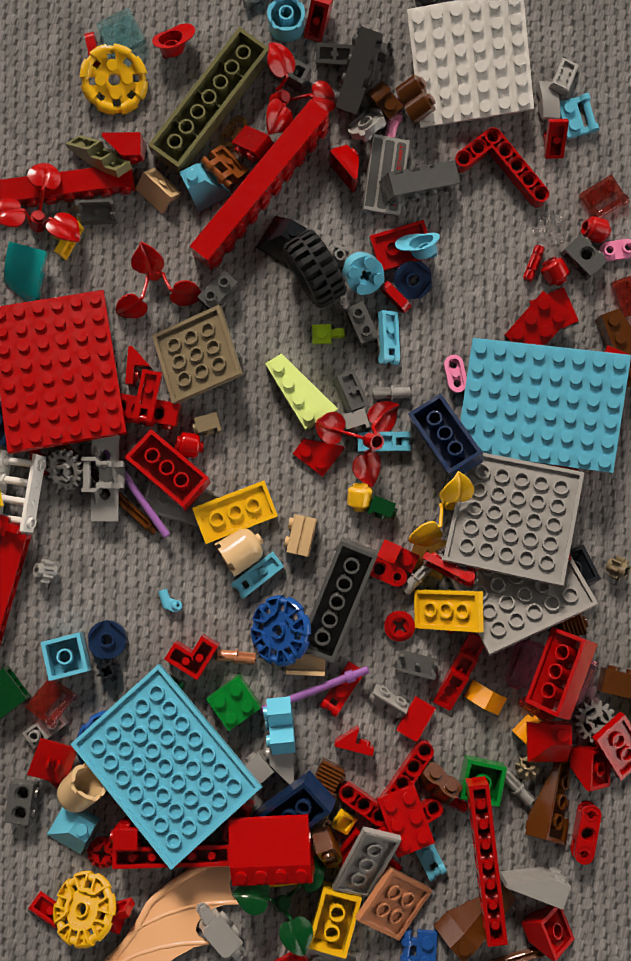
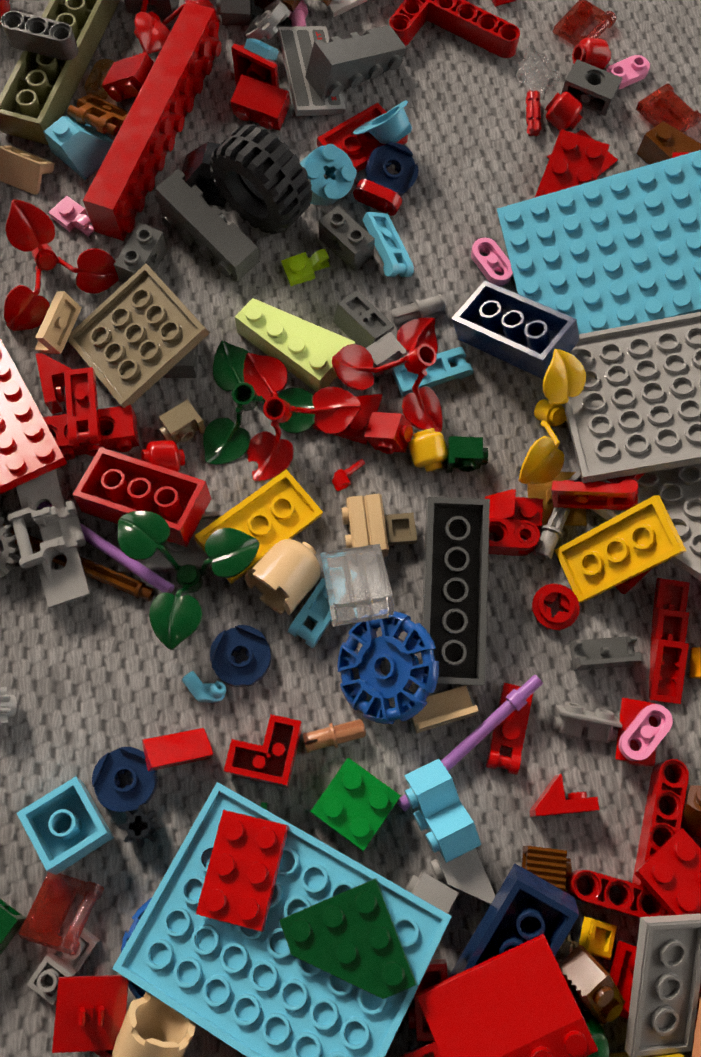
camera: 20 degrees left, 15 degrees down
(142, 633) = (176, 749): none -> red slope
(148, 326) = (57, 324): none -> tan panel
(156, 719) = (242, 870): none -> red plate
(181, 240) = (71, 215): none -> bright pink plate
(186, 589) = (234, 640): none -> dark blue plate
(193, 87) = (39, 35): none -> dark grey beam
(203, 779) = (352, 940): none -> dark green plate
(209, 529) = (176, 615): none -> dark green plant
(234, 445) = (228, 441): none -> dark green plant
(269, 286) = (205, 227): none -> dark grey wedge
(278, 576) = (357, 585): none -> clear brick
(297, 496) = (340, 478): none -> red hand
(307, 449) = (333, 414): none -> red plant
(322, 543) = (400, 529): none -> dark tan plate
(337, 478) = (389, 432): none -> red brick
(339, 194) = (260, 103): none -> red brick
(352, 156) = (261, 49): none -> medium azure tile
(418, 723) = (645, 734): none -> bright pink plate

